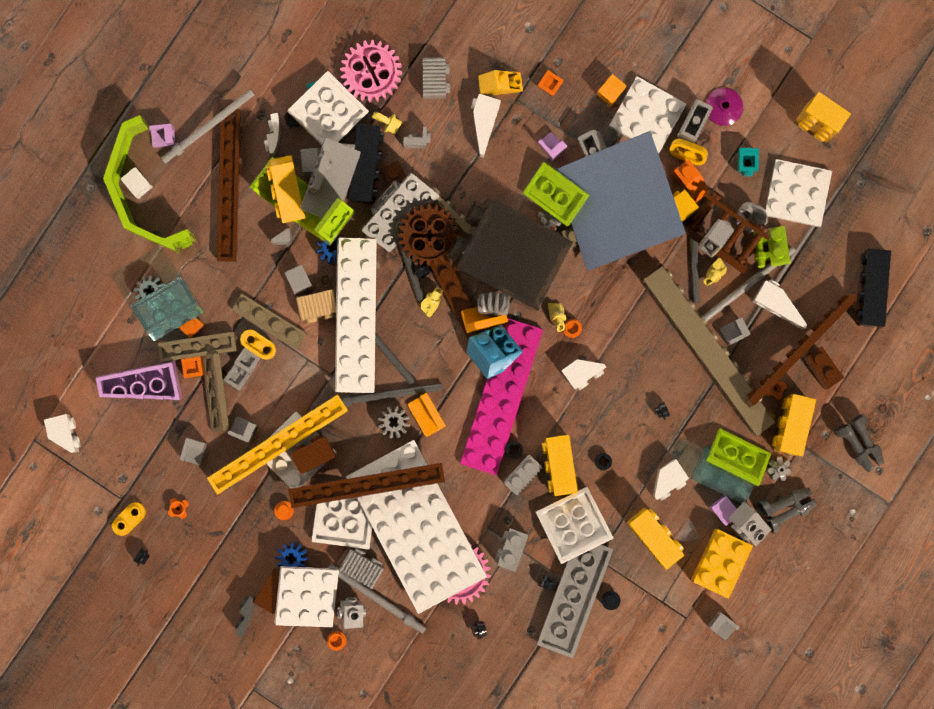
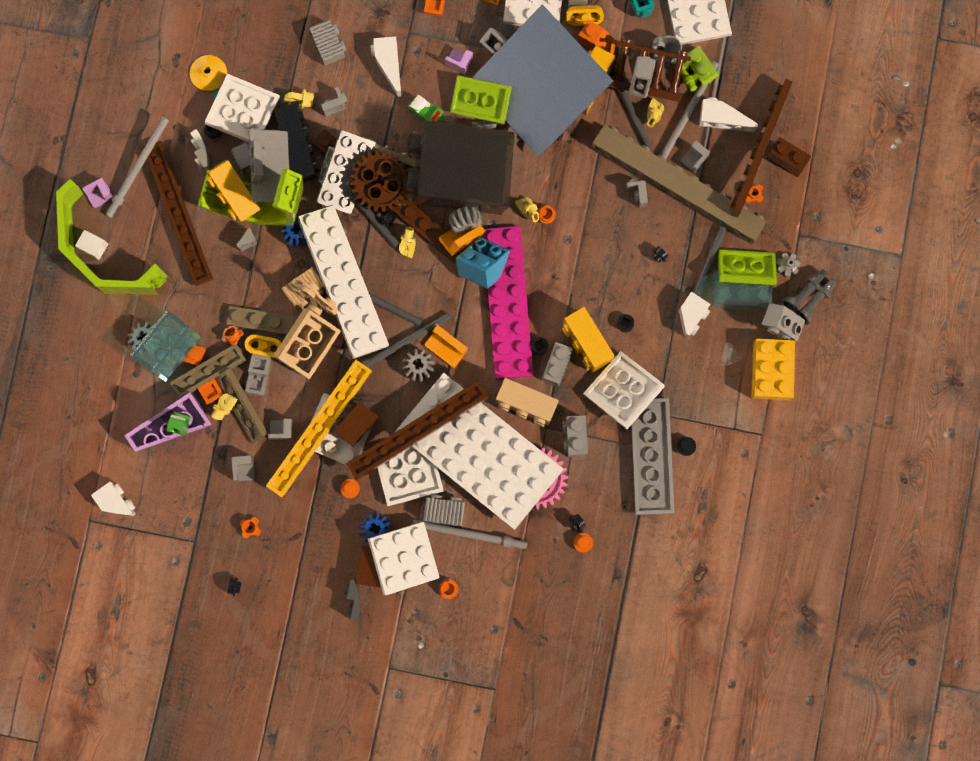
camera: 20 degrees left, 5 degrees down
(129, 520) = (207, 556): yellow plate -> none
(149, 389) = (178, 423): none -> bright green leg
(198, 387) = (224, 406): none -> light yellow piece
(233, 322) = (232, 335): none -> orange plate
(298, 279) = (277, 271): light grey panel -> none
(298, 360) = (306, 343): none -> tan brick
(311, 70) = (212, 80): none -> yellow dish
(320, 325) = (317, 302): none -> tan plant
(351, 613) = (452, 556): light grey brick -> none
(356, 78) = (279, 47): bright pink gear -> none
(477, 649) = (583, 542): none -> orange plate
(478, 500) = (526, 402): none -> tan brick
(500, 82) = (388, 22): yellow slope -> none
(500, 183) = (425, 110): none -> bright green leg
(546, 582) = (620, 454): black plate -> none
(581, 371) = (570, 250): white slope -> none
(656, 538) = (703, 370): yellow brick -> none
(669, 345) = (641, 193): none -> light grey bracket
(706, 435) = (709, 261): none -> dark grey bar
(722, 625) = (799, 426): light grey panel -> none
(723, 509) = (753, 320): lavender panel -> none
(794, 424) = (784, 217): yellow brick -> none
(846, 431) = (867, 212): dark grey piece -> none
(874, 288) = (803, 68): black brick -> none

